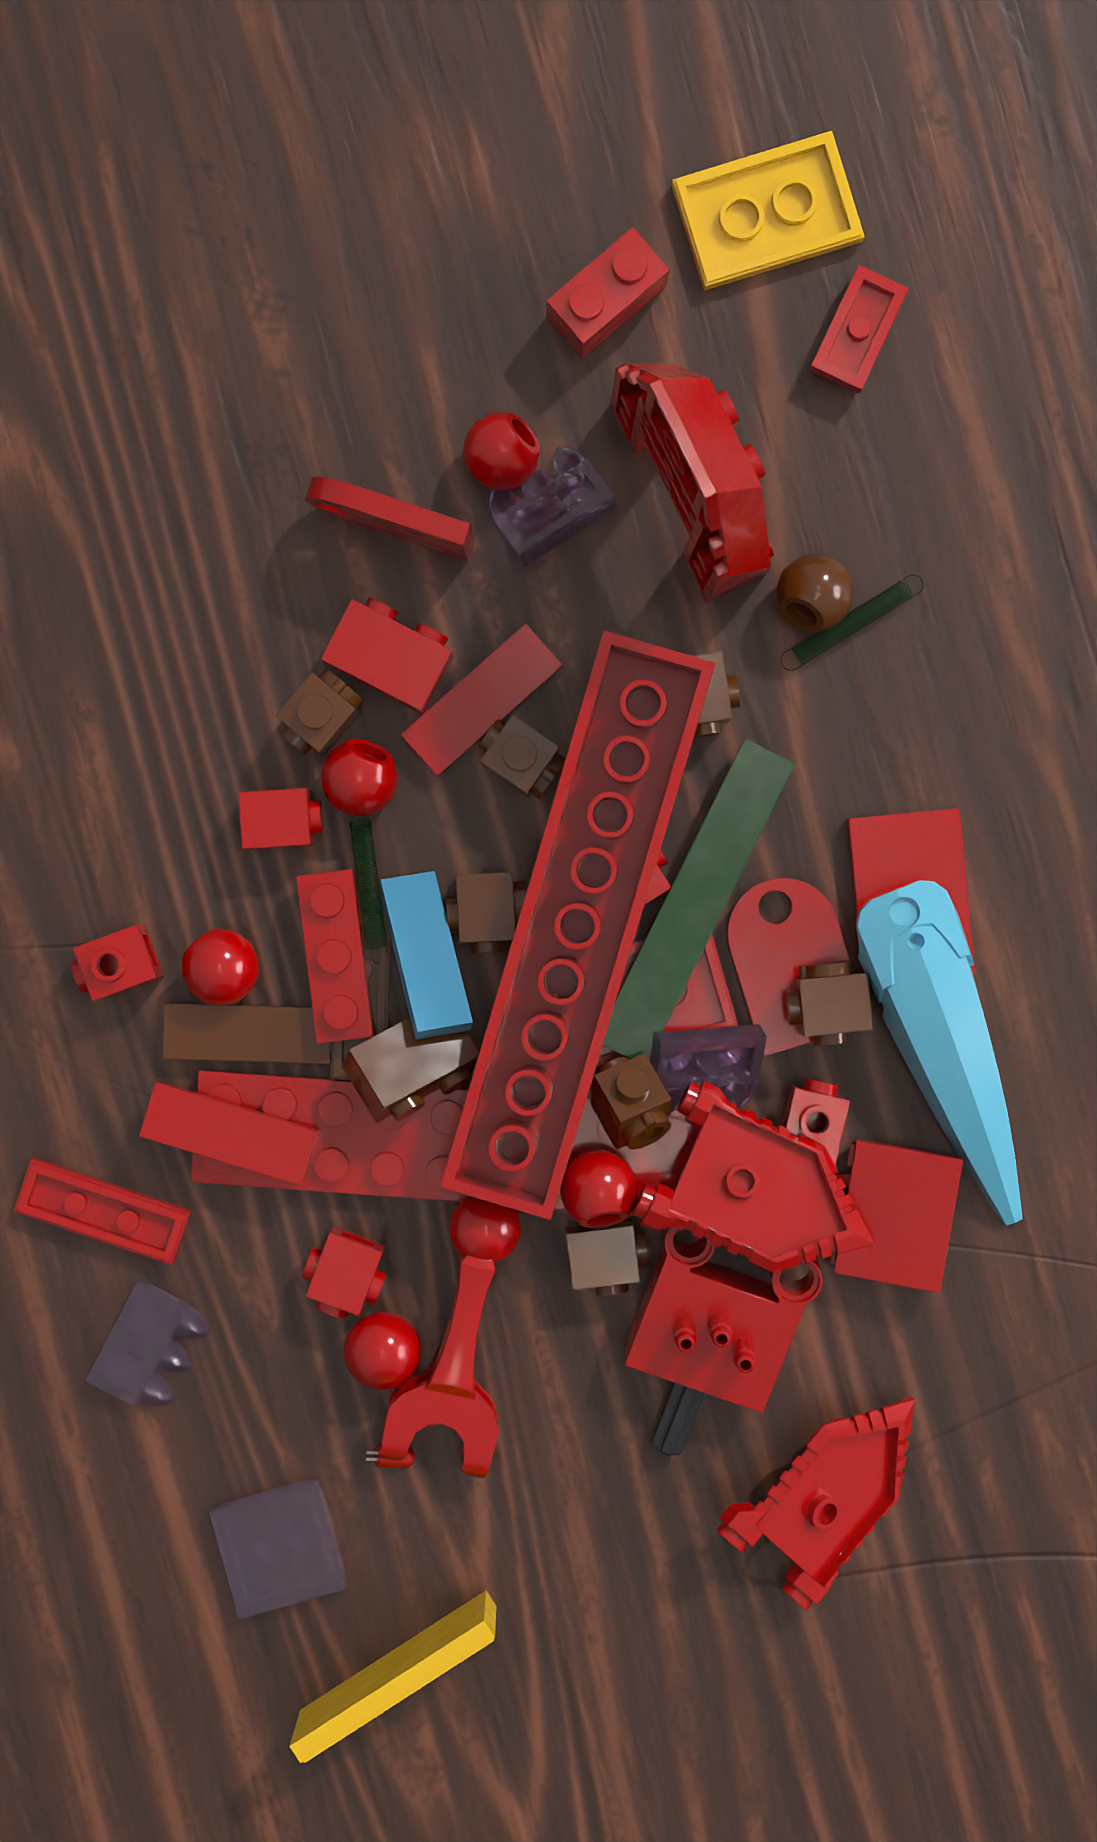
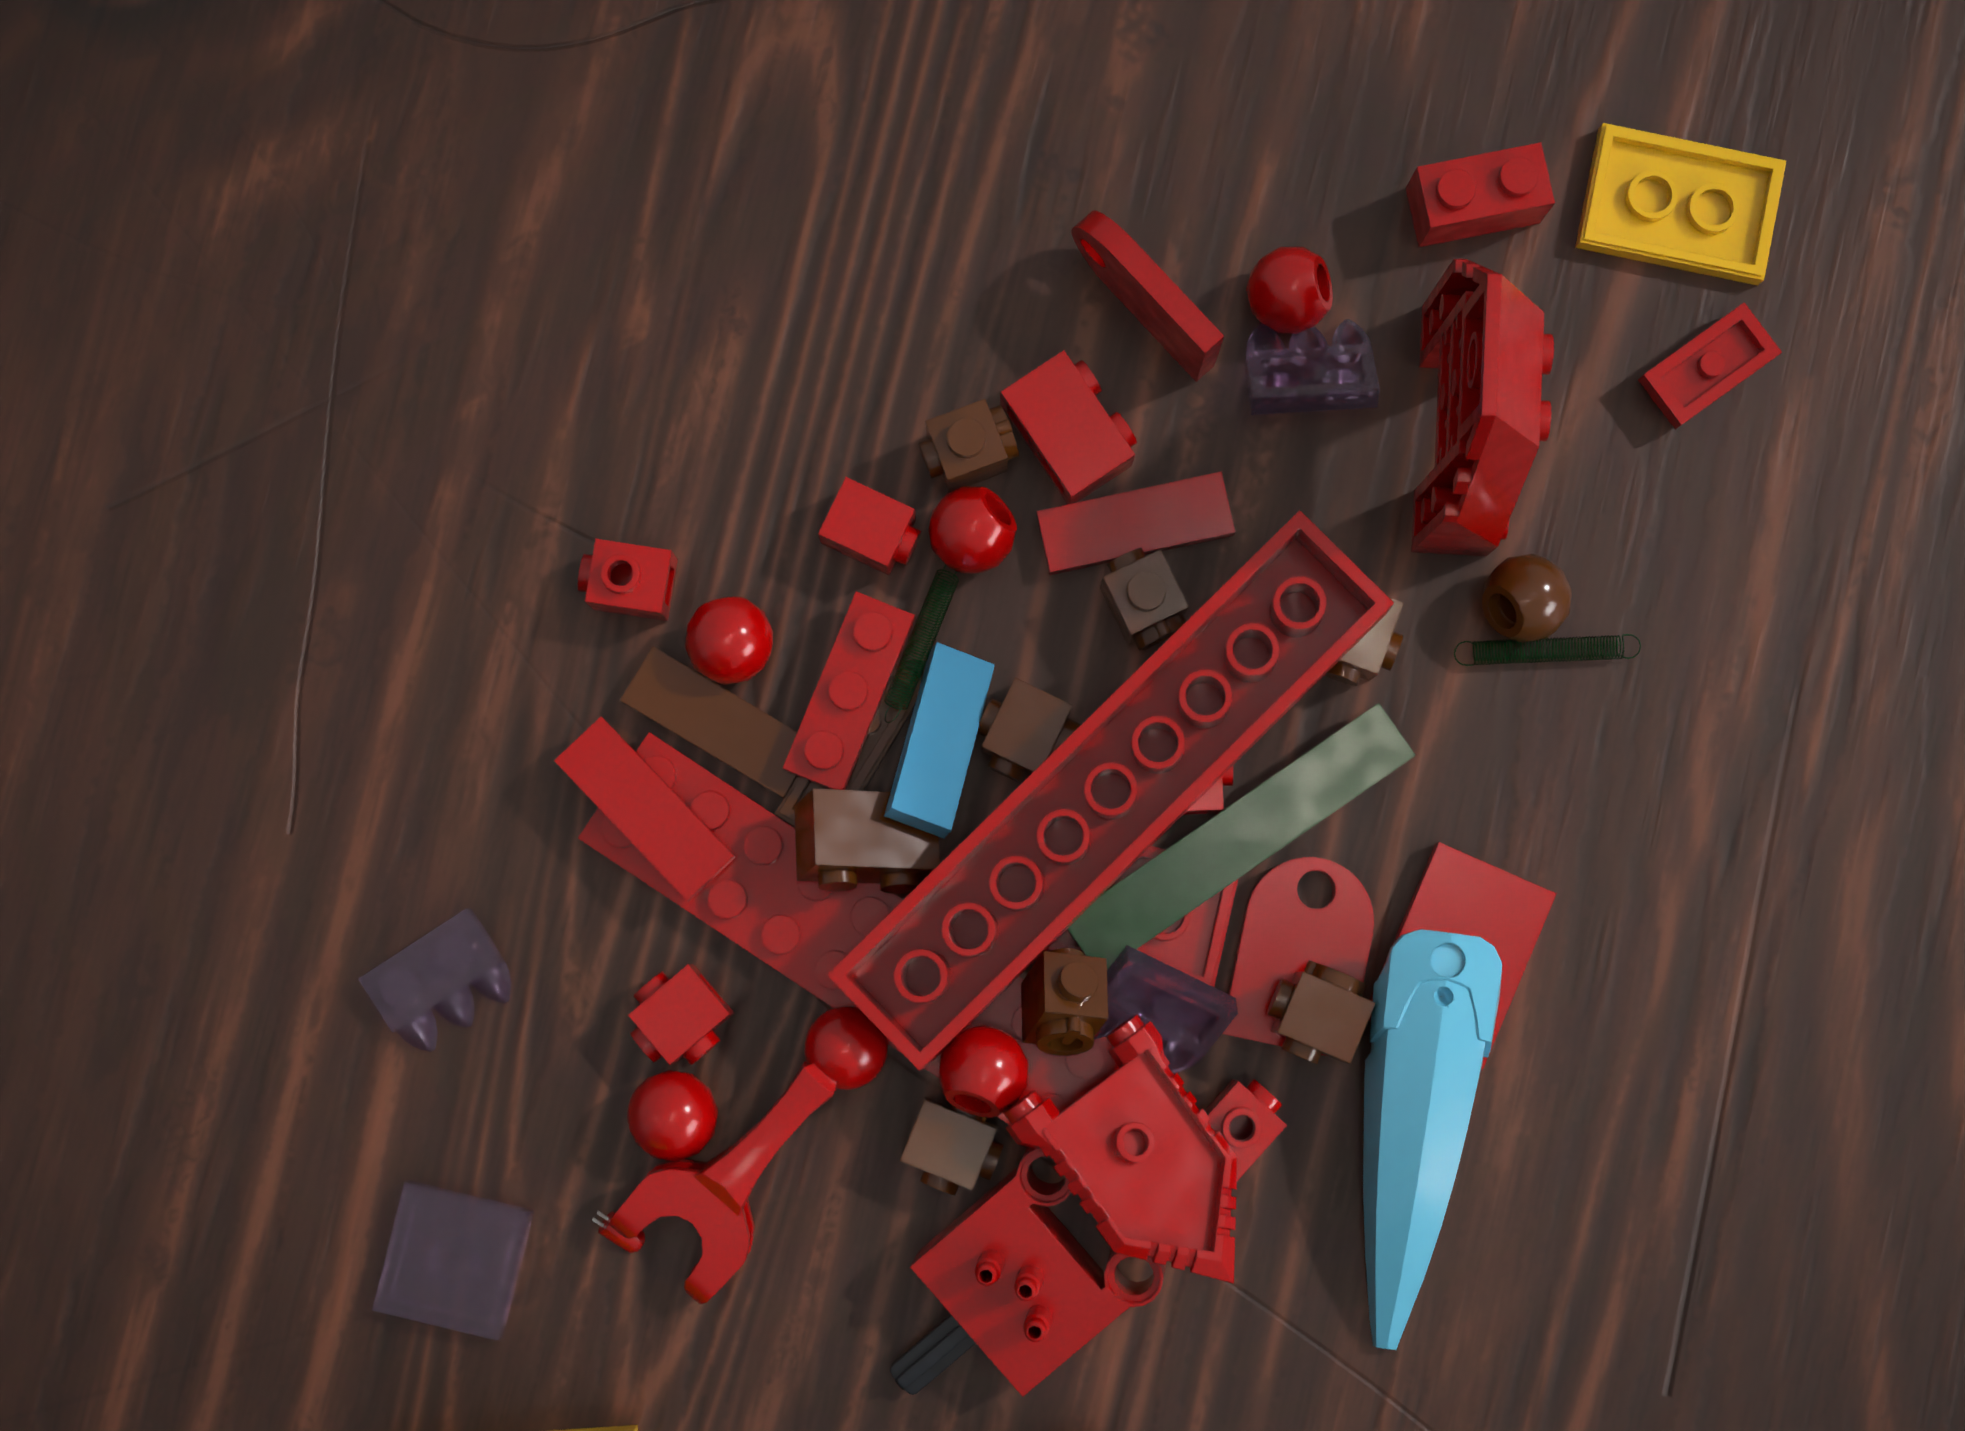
camera: 25 degrees right, 5 degrees down
(102, 1211) = (473, 819): red tile -> none
(907, 1209) = (1284, 1273): red piece -> none

